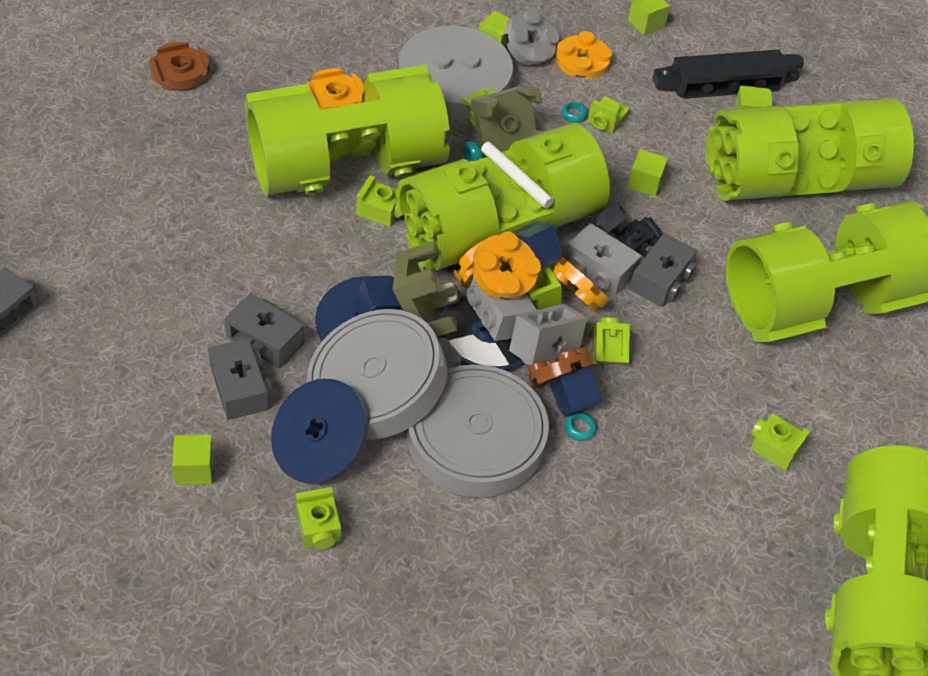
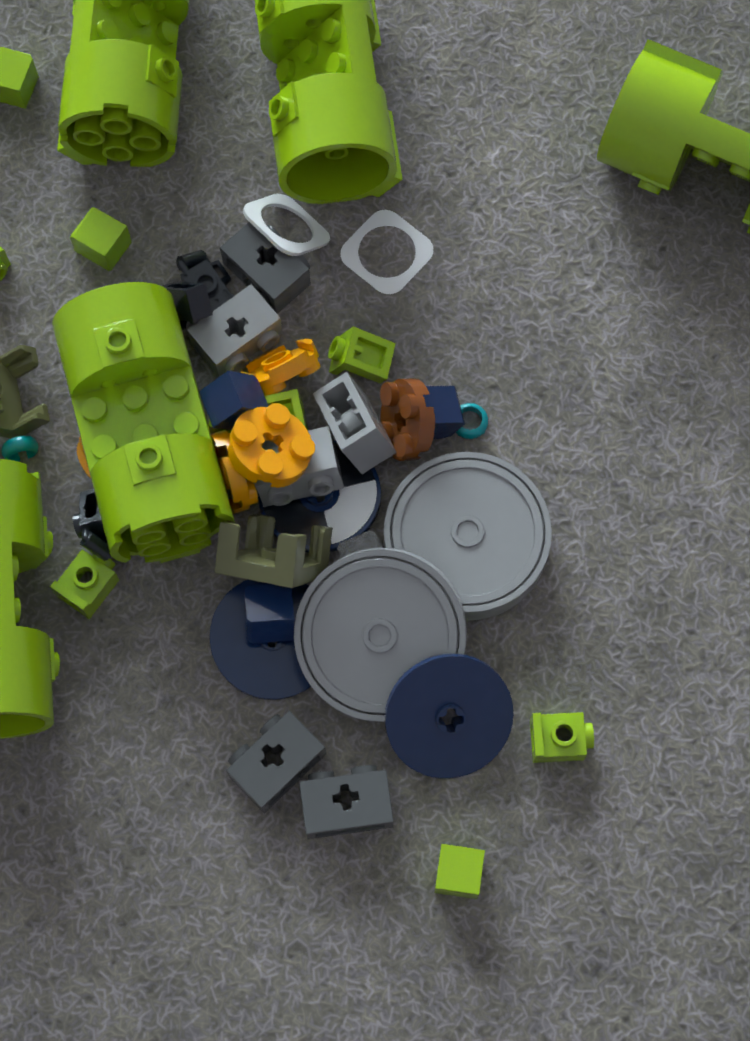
camera: 70 degrees left, 20 degrees up
(517, 175) = (130, 396): white bar -> none
(679, 271) = (252, 213): none -> white piece
(721, 377) = (391, 285): none -> white piece
(778, 440) = (529, 226): lime brick -> none

